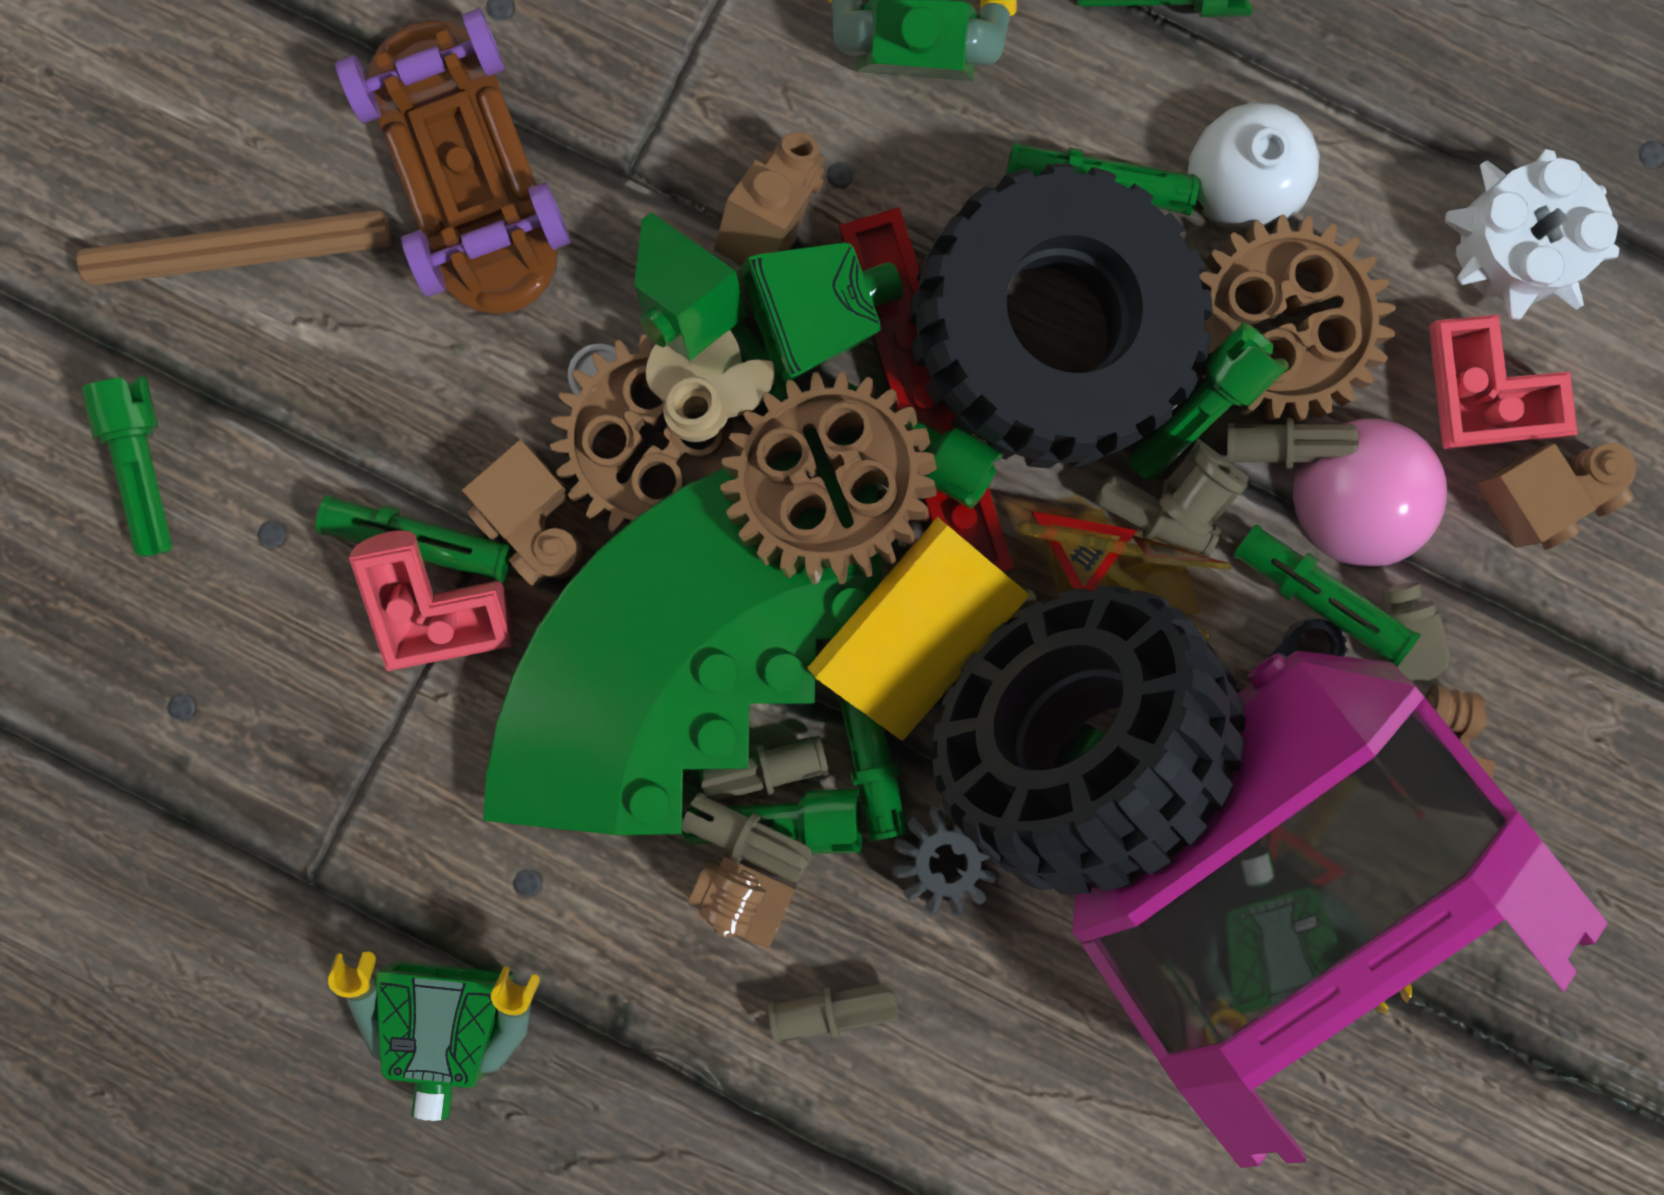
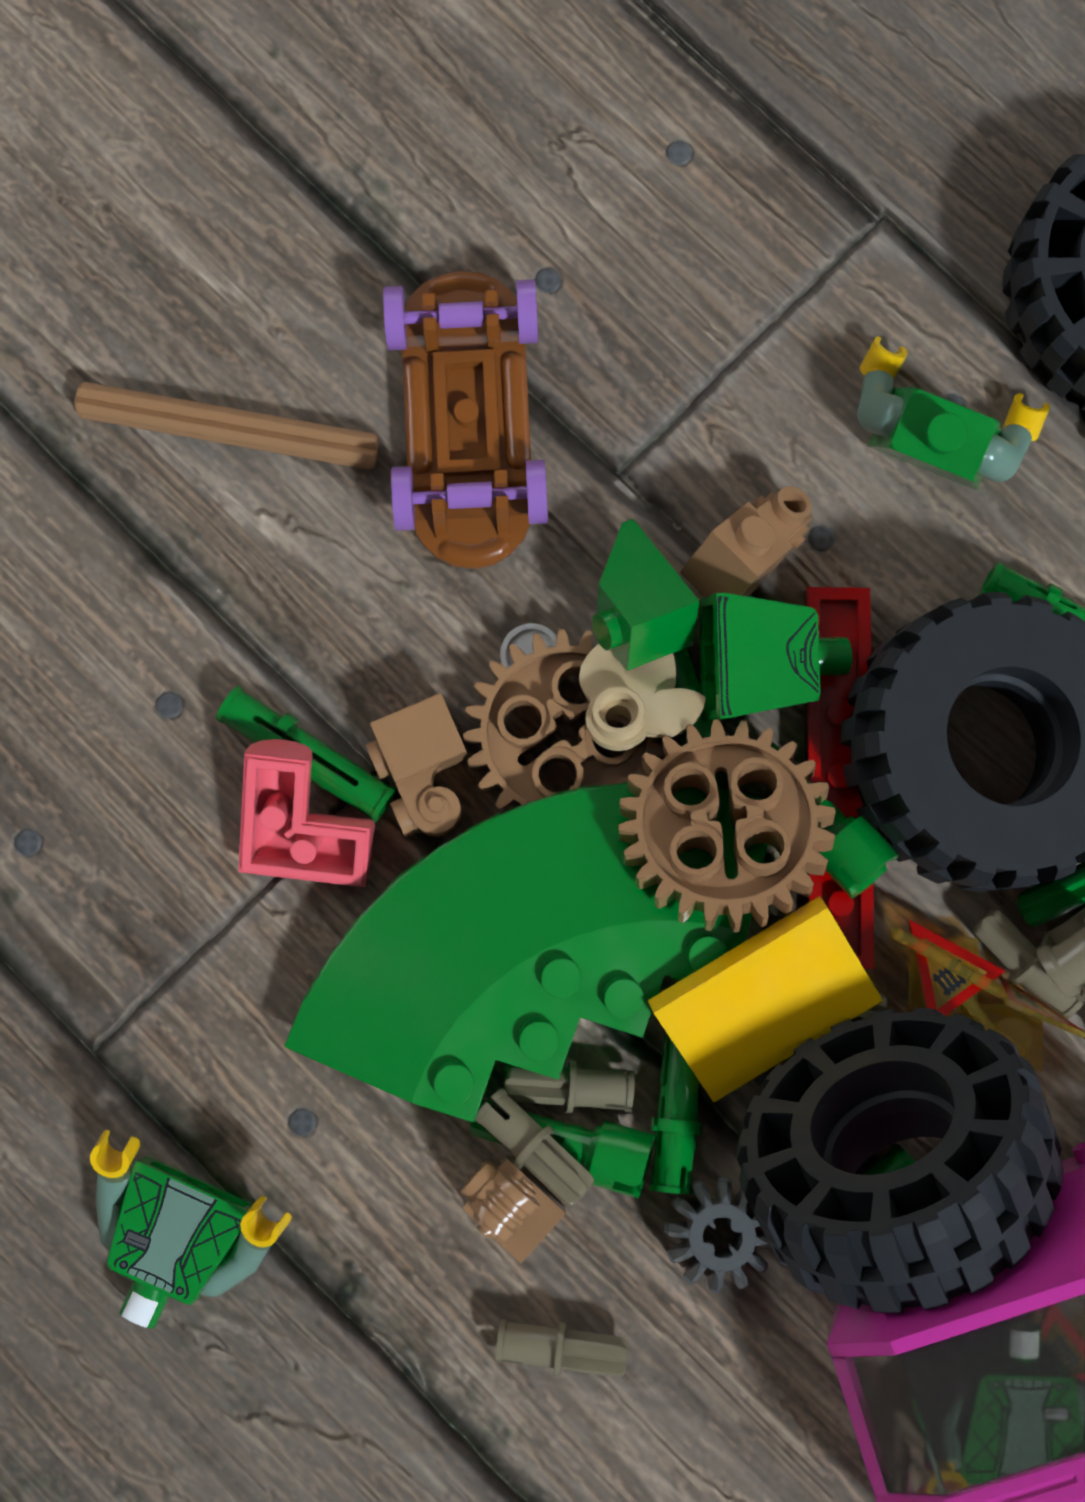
camera: 15 degrees right, 5 degrees down
(123, 419) = (69, 551): green piece -> none

